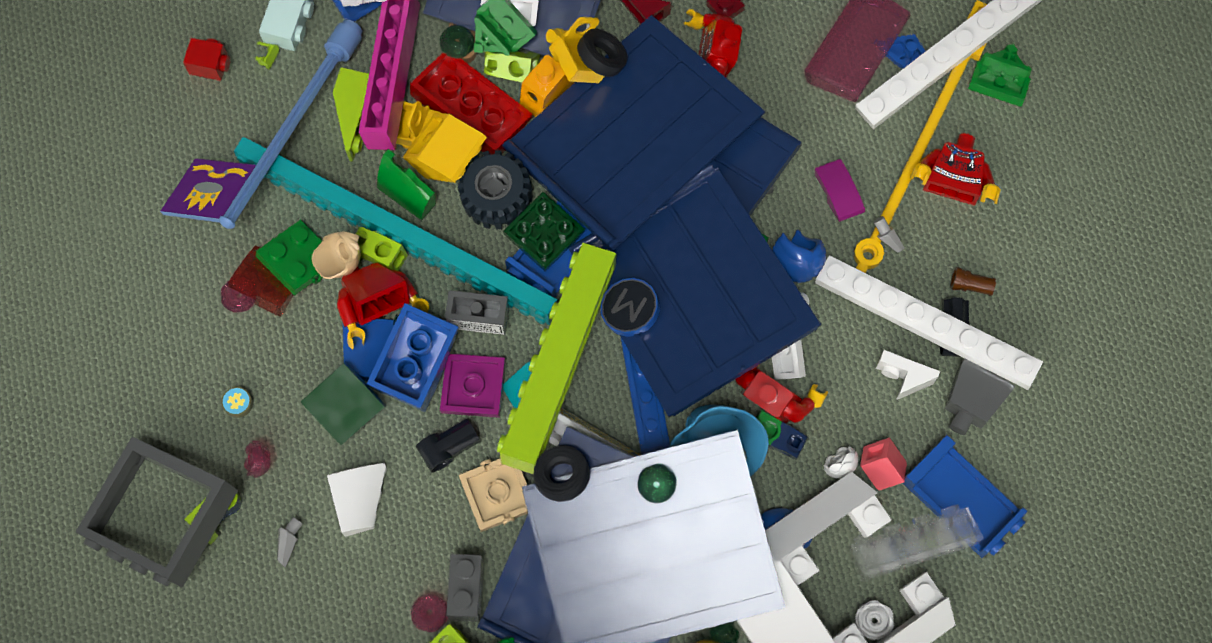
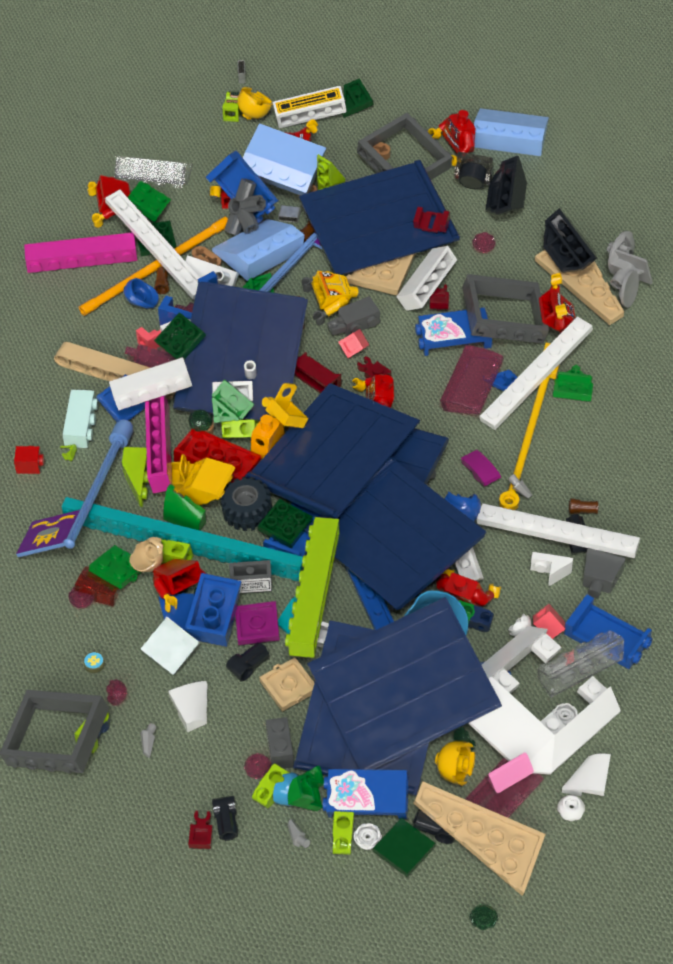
camera: 10 degrees left, 20 degrees down
(561, 491) = (336, 655): black tyre -> none
(597, 62) = (302, 406): black tyre -> none
(630, 307) = (355, 551): black tile -> none
(660, 474) = (398, 646): clear green plate -> none
(957, 172) = (557, 444): red torso -> none

